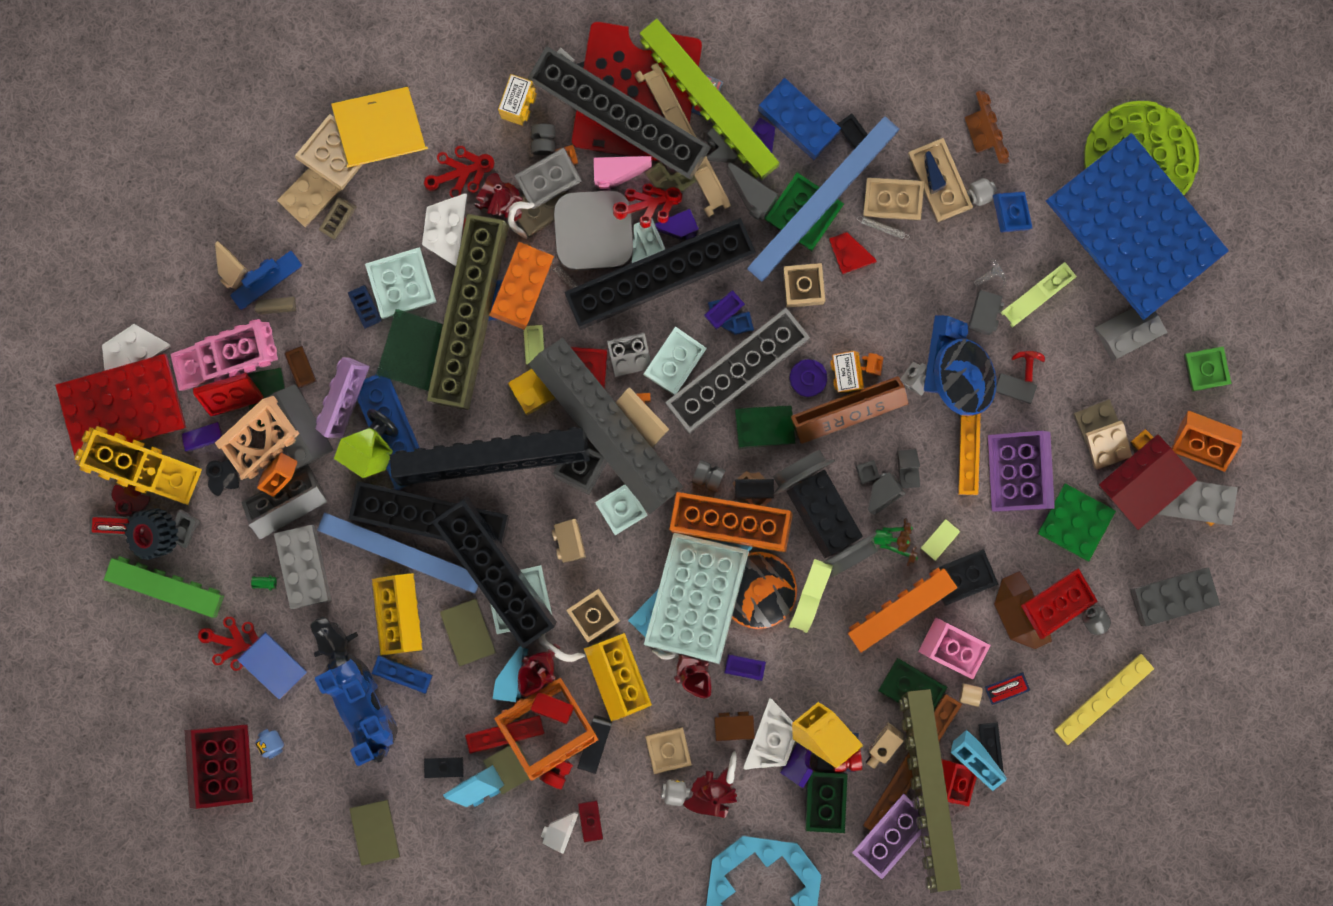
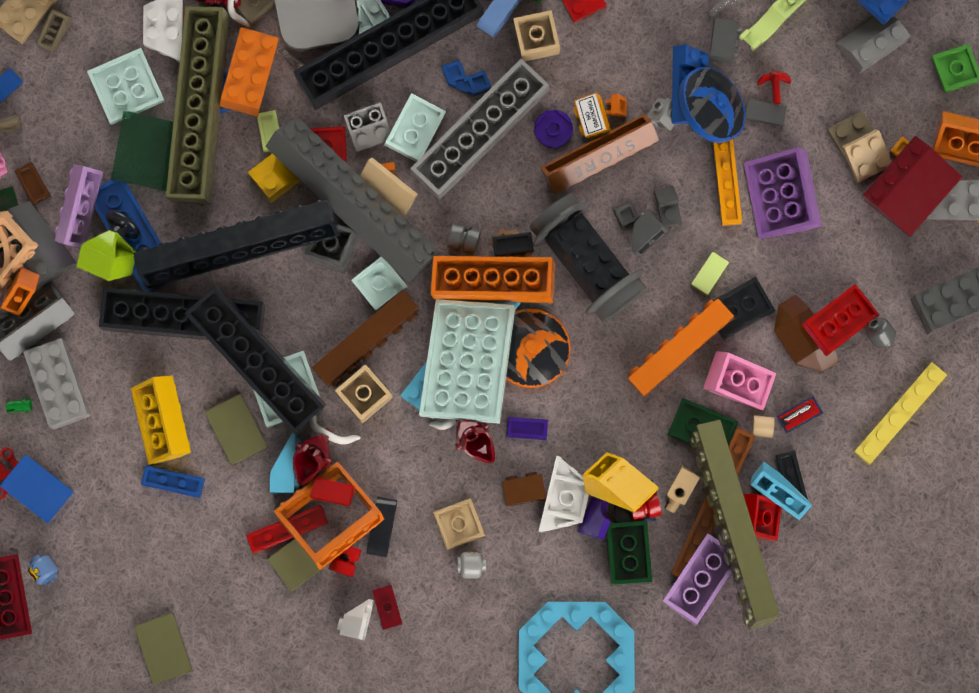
camera: 10 degrees left, 5 degrees down
(353, 694) = (123, 502): blue animal -> none
(363, 289) = (85, 99): dark blue slope -> none
(397, 552) = (154, 356): medium blue beam -> none
(443, 767) = (227, 571): black plate -> none
(476, 788) = (262, 585): medium azure slope -> none
(569, 541) = (329, 321): tan slope -> none
(601, 561) = (365, 339): none -> reddish brown brick
(617, 677) = (396, 454): yellow slope -> none
(712, 793) = (508, 558): dark red helmet -> none
(724, 309) = (458, 71): dark purple tile -> none
(764, 426) = (514, 182): dark green slope -> none
(811, 595) = (584, 342): yellowish green piece -> none
(884, 538) = (653, 277): plant -> none
(1076, 522) = (846, 238): green plate -> none

